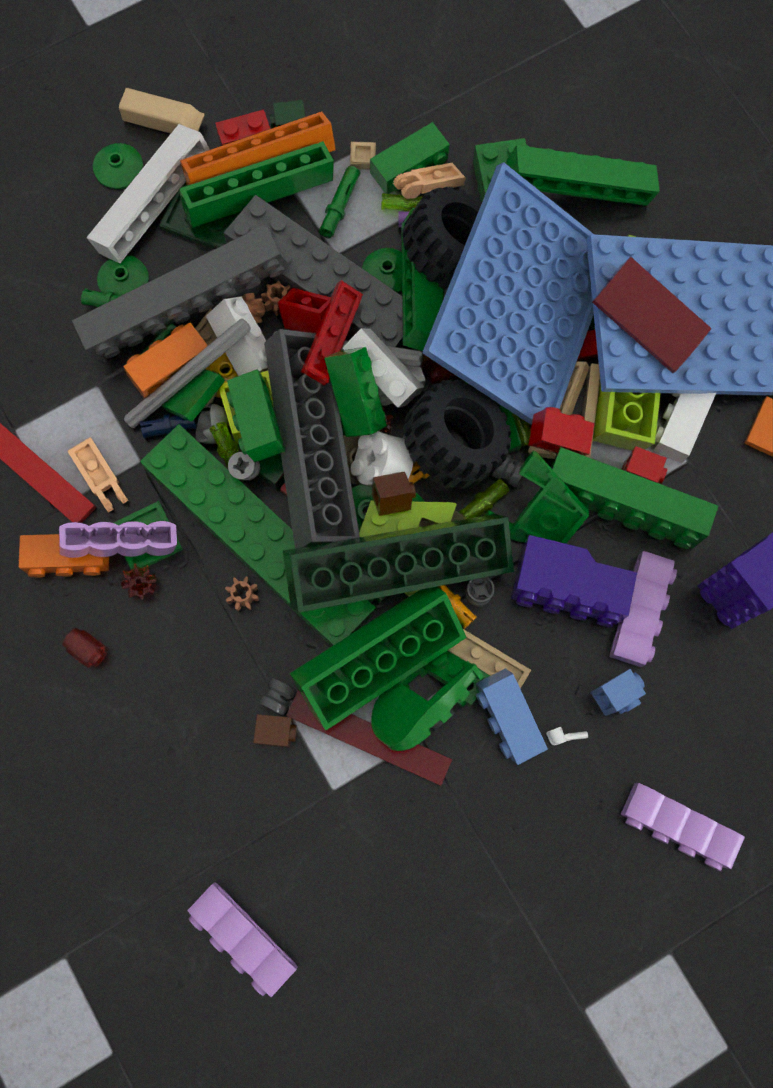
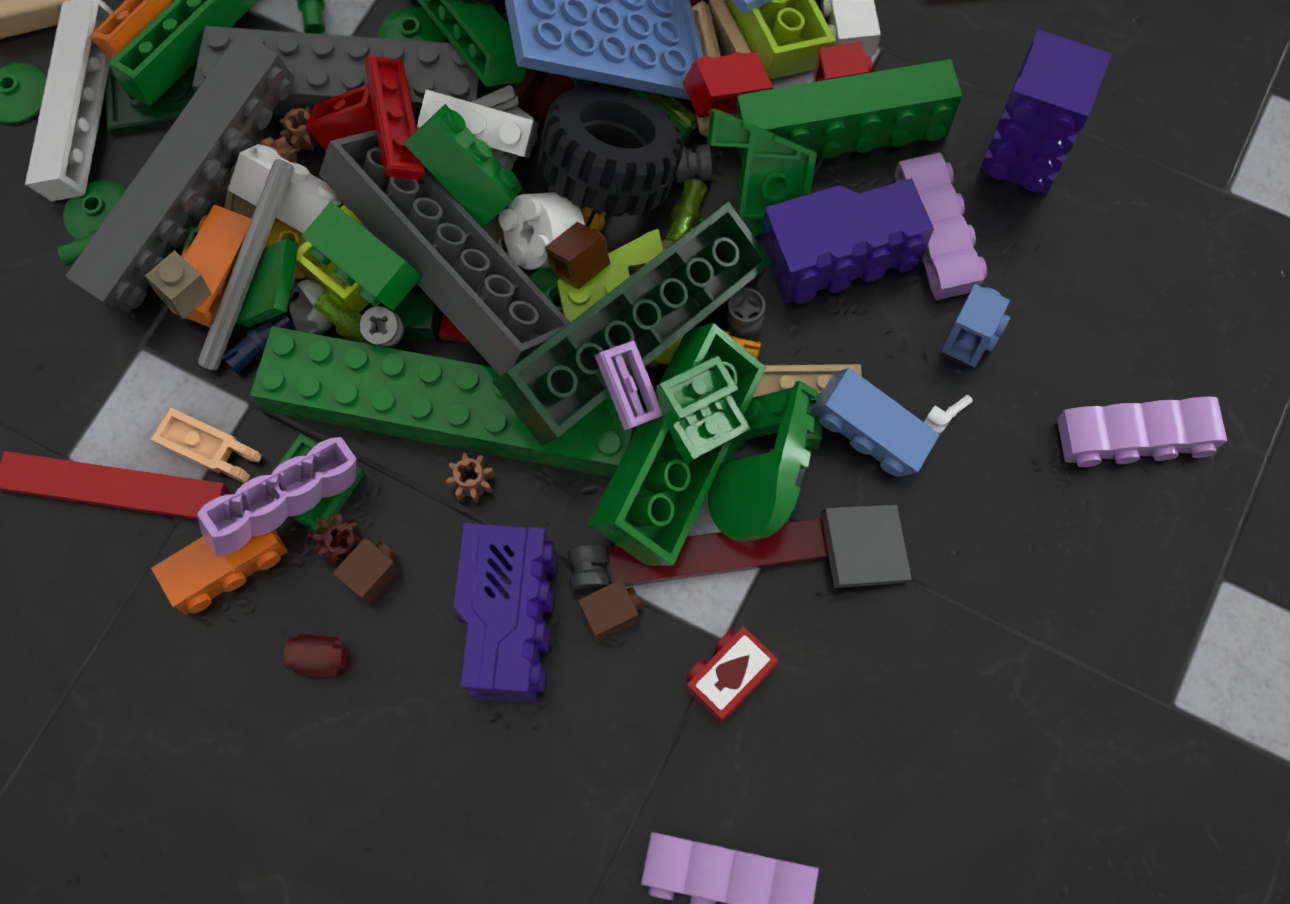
camera: 25 degrees left, 5 degrees down
(135, 367) = (178, 284): none -> dark tan brick
(146, 614) = (368, 570): none -> reddish brown brick
(209, 690) = (503, 601): none -> dark purple piece
(321, 817) = (730, 674): none -> brick
(354, 602) = (616, 390): none -> lavender tile
(402, 645) = (701, 409): none -> slope
(456, 789) = (865, 546): none -> dark grey tile

